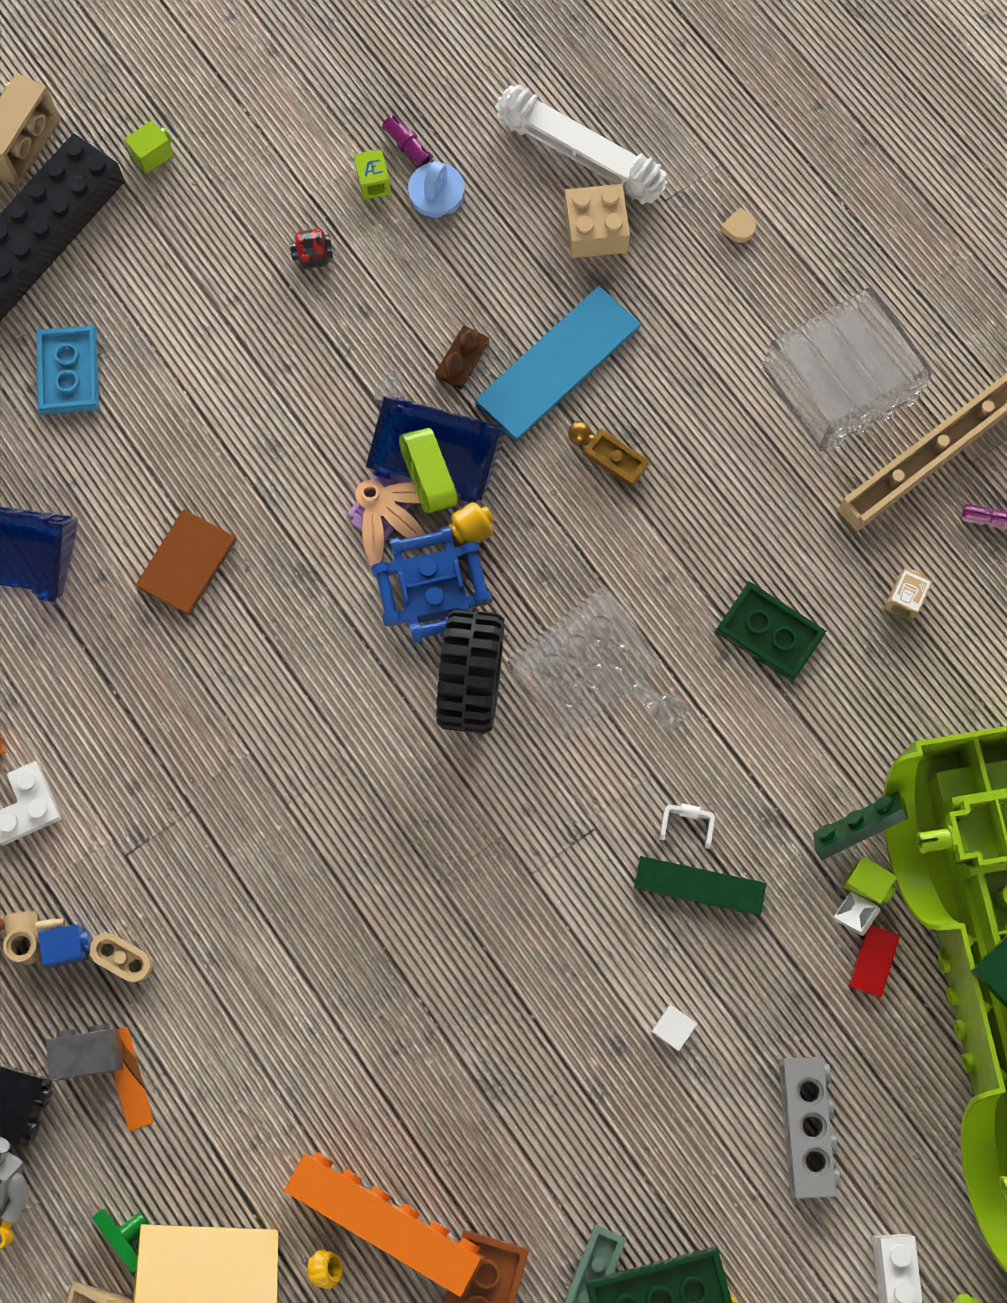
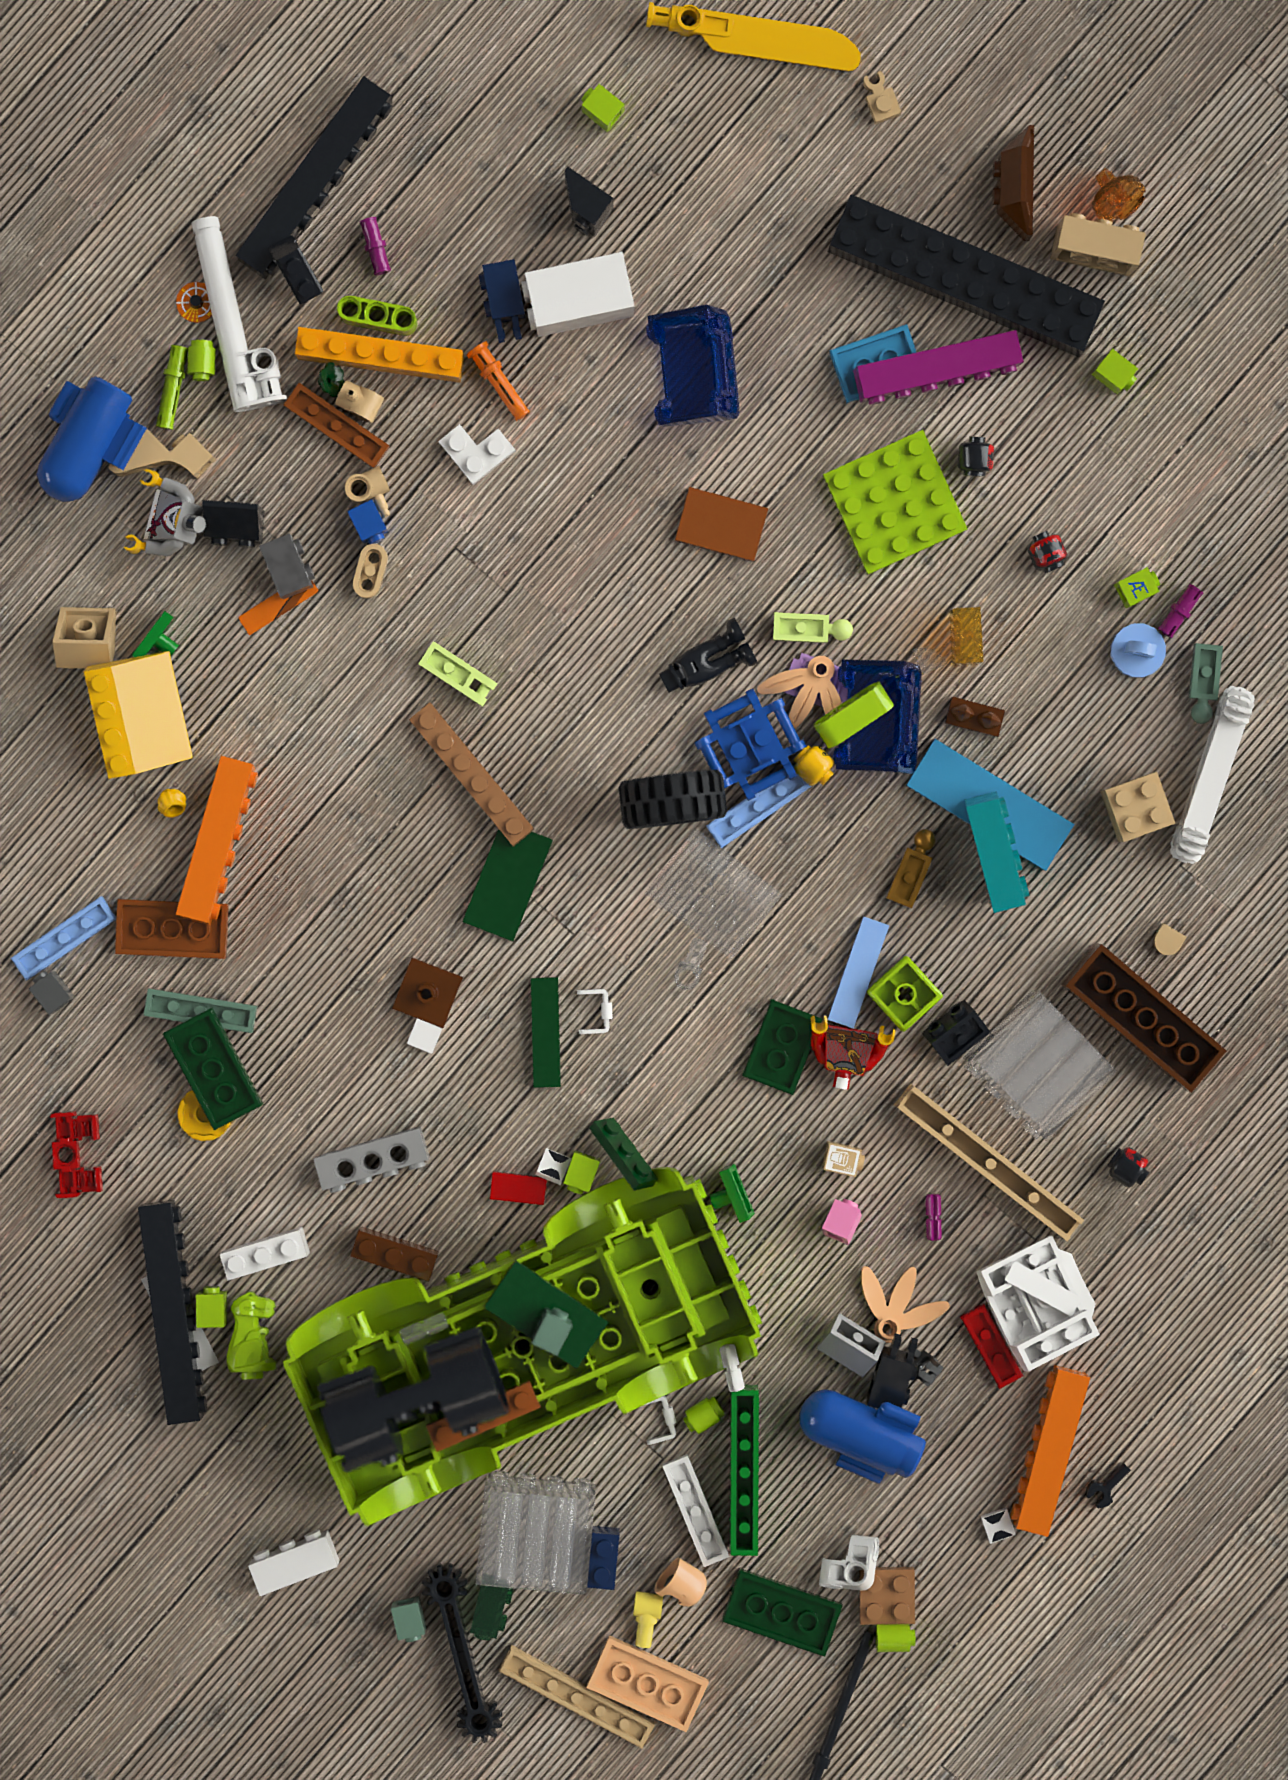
camera: 80 degrees right, 15 degrees up
(89, 307) = (938, 366): none -> magenta brick
(193, 292) = (975, 456): none -> black head
(216, 384) = (895, 502): none -> lime plate
(265, 886) = (456, 673): none -> yellowish green plate
(322, 498) = (809, 628): none -> yellowish green plate
(330, 625) = (693, 666): none -> black piece
(376, 342) = (966, 636): none -> clear yellow brick
(384, 897) = (471, 774): none -> medium nougat plate
(482, 134) = (1205, 680): none -> sand green plate
(505, 598) = (751, 812): none -> light blue tile
(516, 887) = (507, 884): none -> dark green tile
(610, 357) = (994, 848): none -> teal brick
(624, 1012) = (427, 992): none -> reddish brown tile
(706, 533) = (858, 972): none -> light blue tile
(744, 471) = (904, 1012): none -> lime brick
(789, 558) = (847, 1050): none -> torso
(791, 448) = (956, 1032): none -> black bracket
(816, 260) = (1144, 1017): none -> reddish brown brick
(926, 718) = (733, 1194): none -> green tile
(927, 1126) = (394, 1253): none -> reddish brown brick
(970, 312) = (1128, 1167): none -> black head
(978, 608) = (842, 1221): none -> bright pink brick

